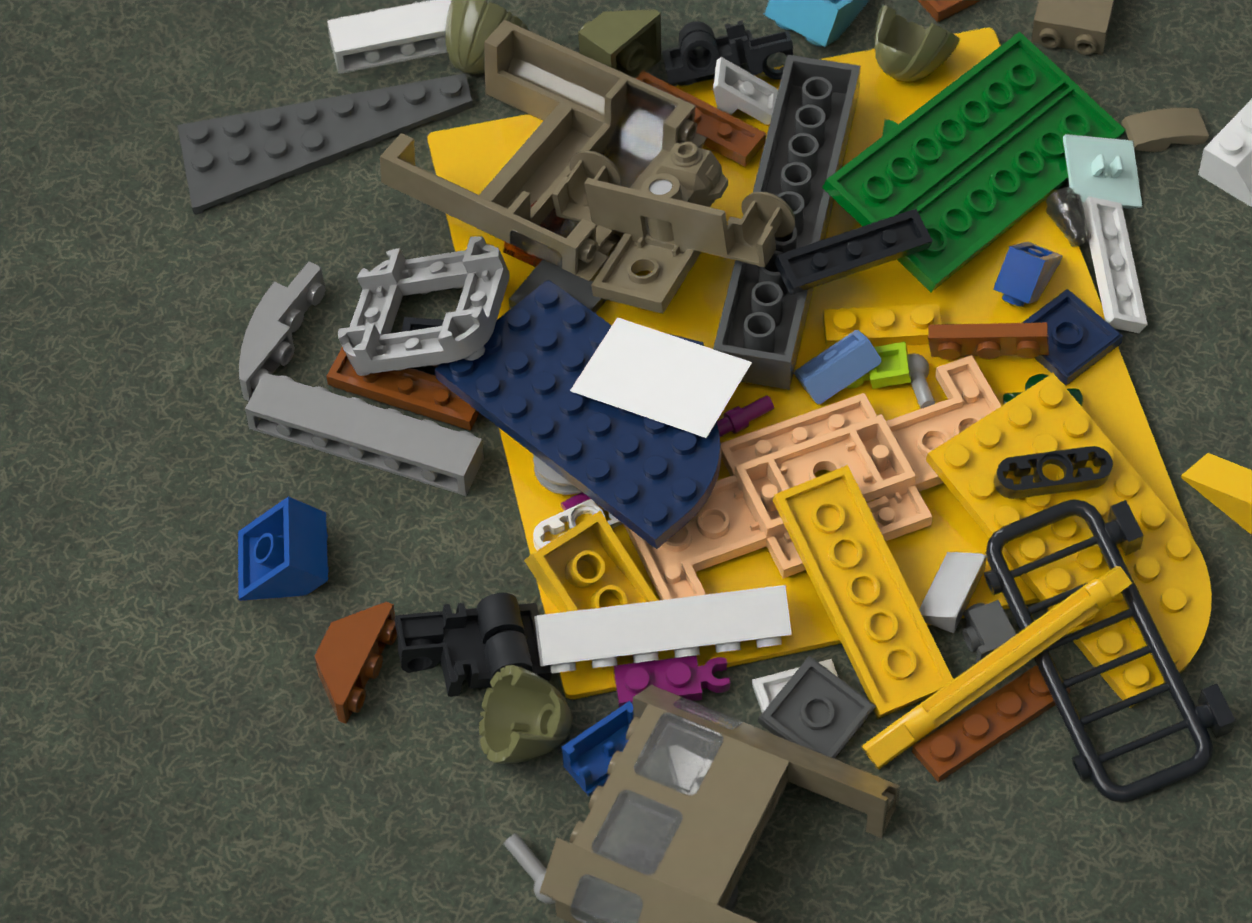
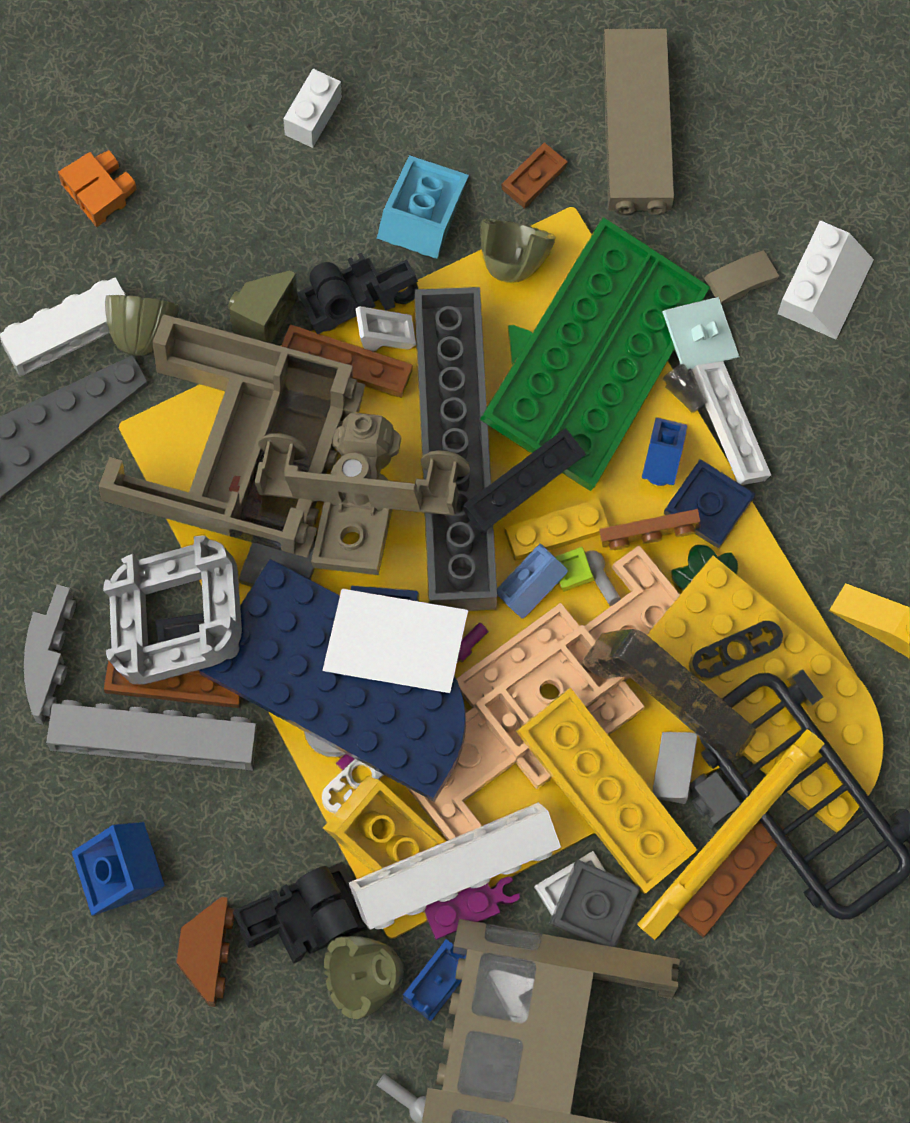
camera: 20 degrees left, 15 degrees up
(969, 484) = (663, 677): none -> clear smoke beam

